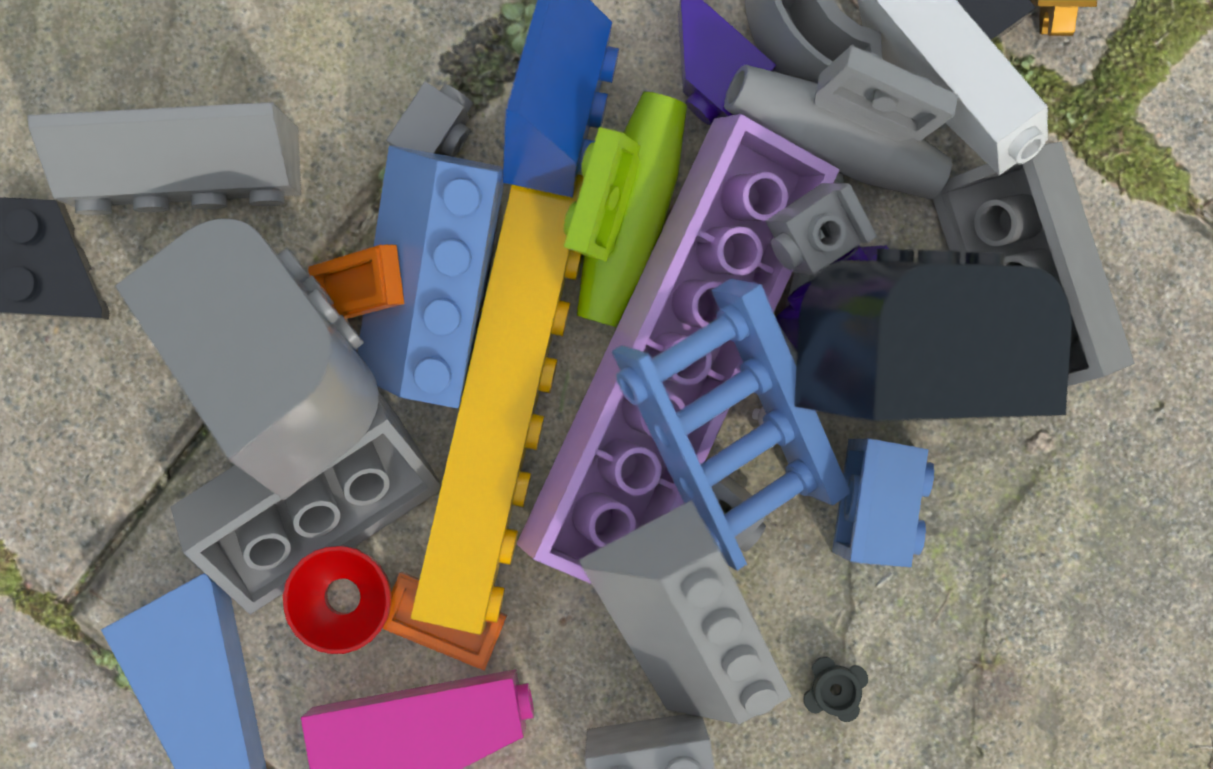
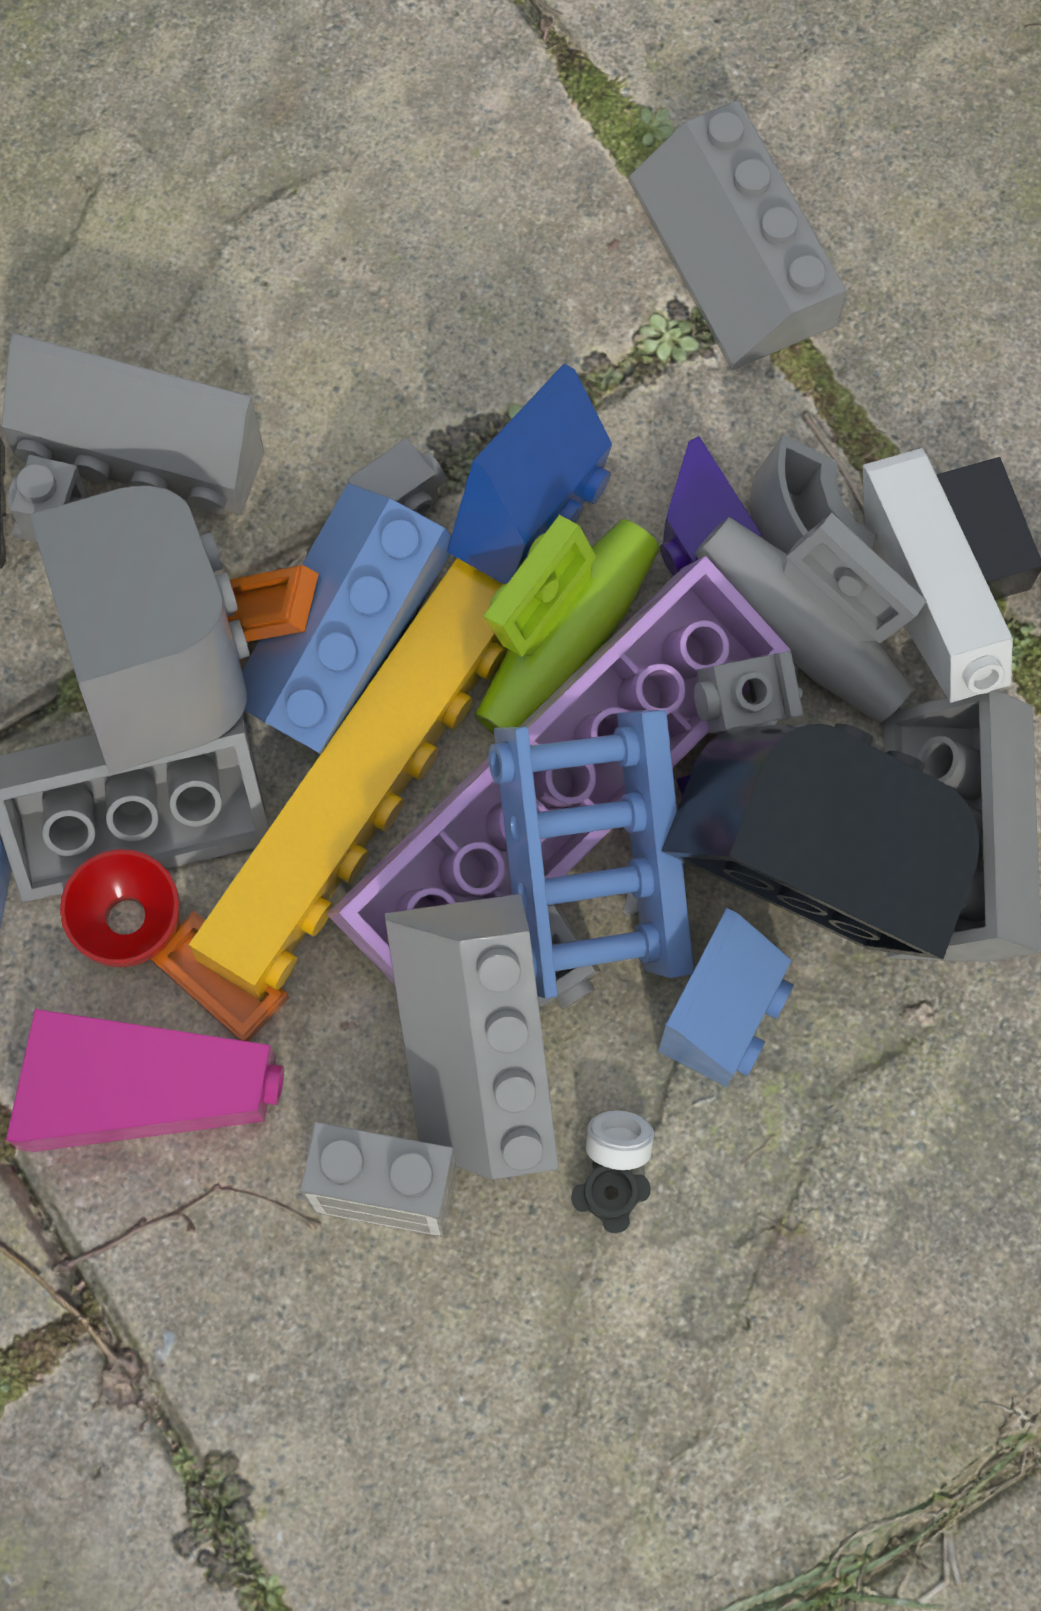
camera: 15 degrees right, 15 degrees down
(120, 246) = (40, 487): none -> light grey brick
(830, 646) = (619, 1140): none -> white tile

